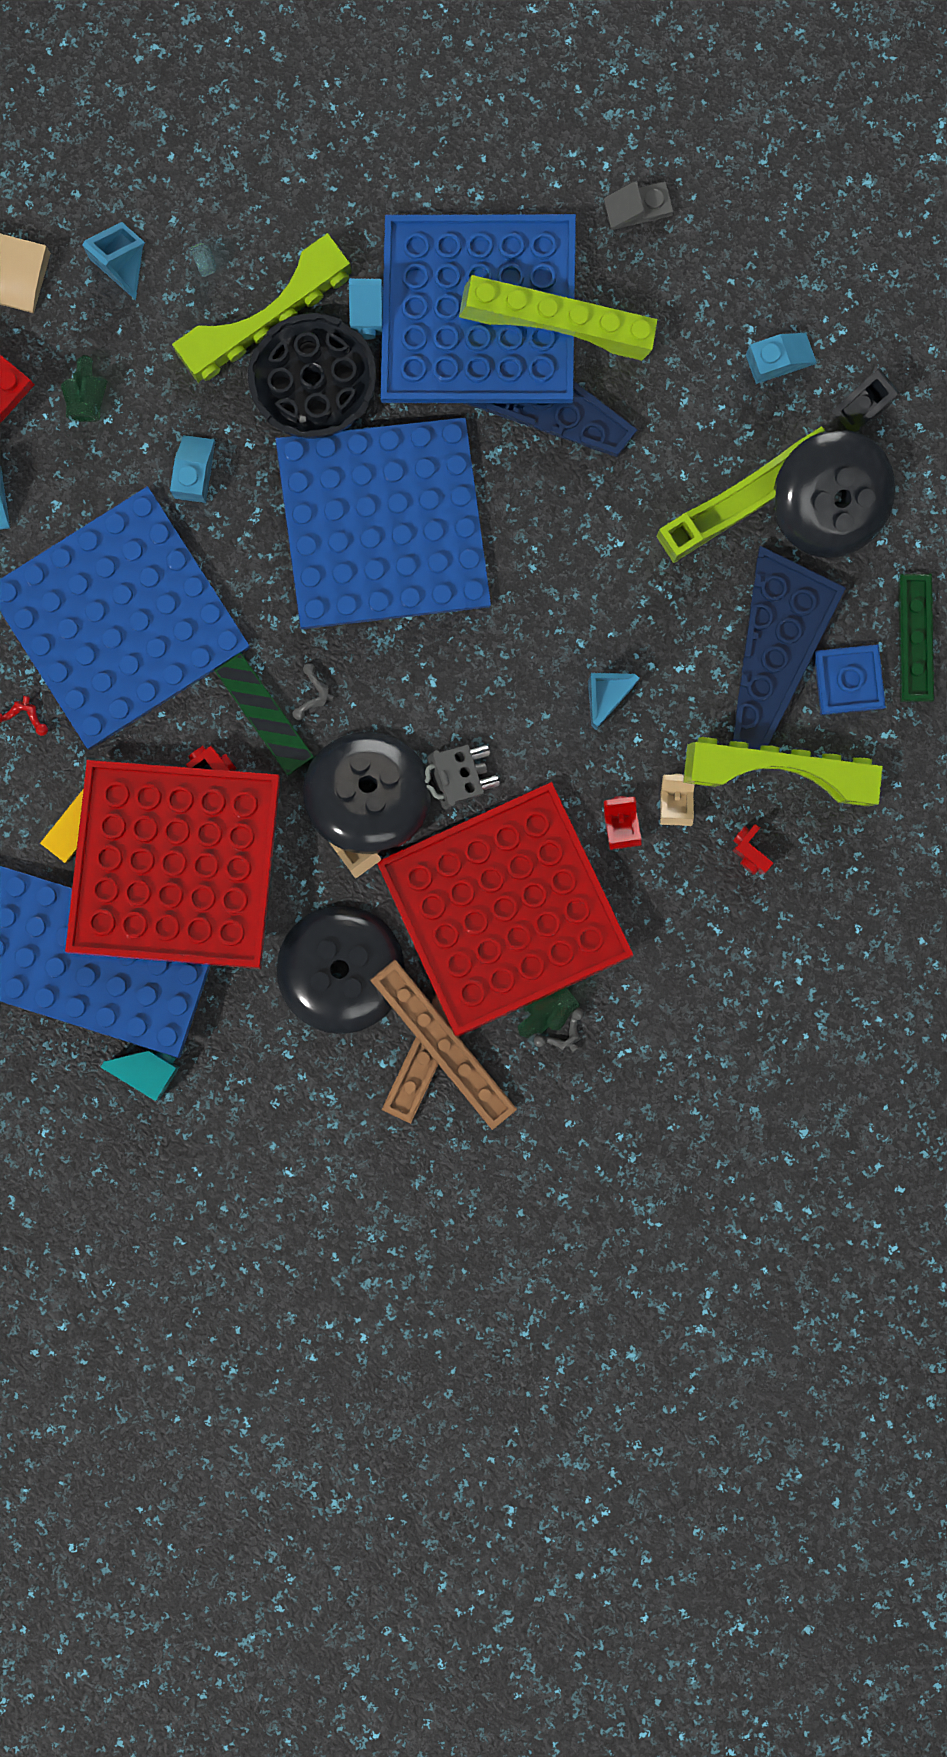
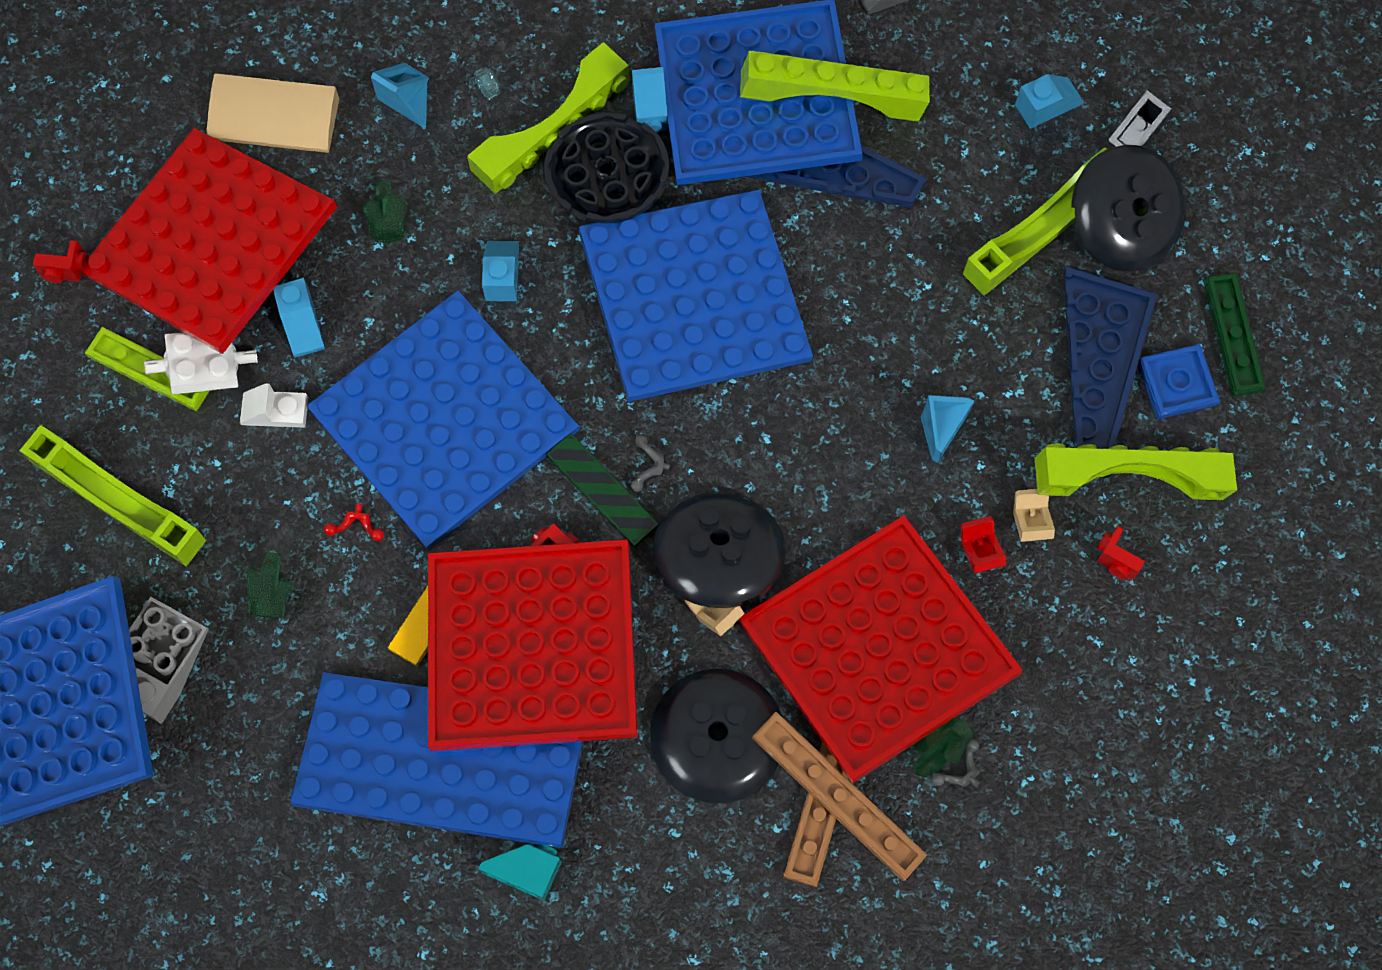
camera: 10 degrees left, 15 degrees down
(447, 776) = (807, 522): dark grey piece -> none

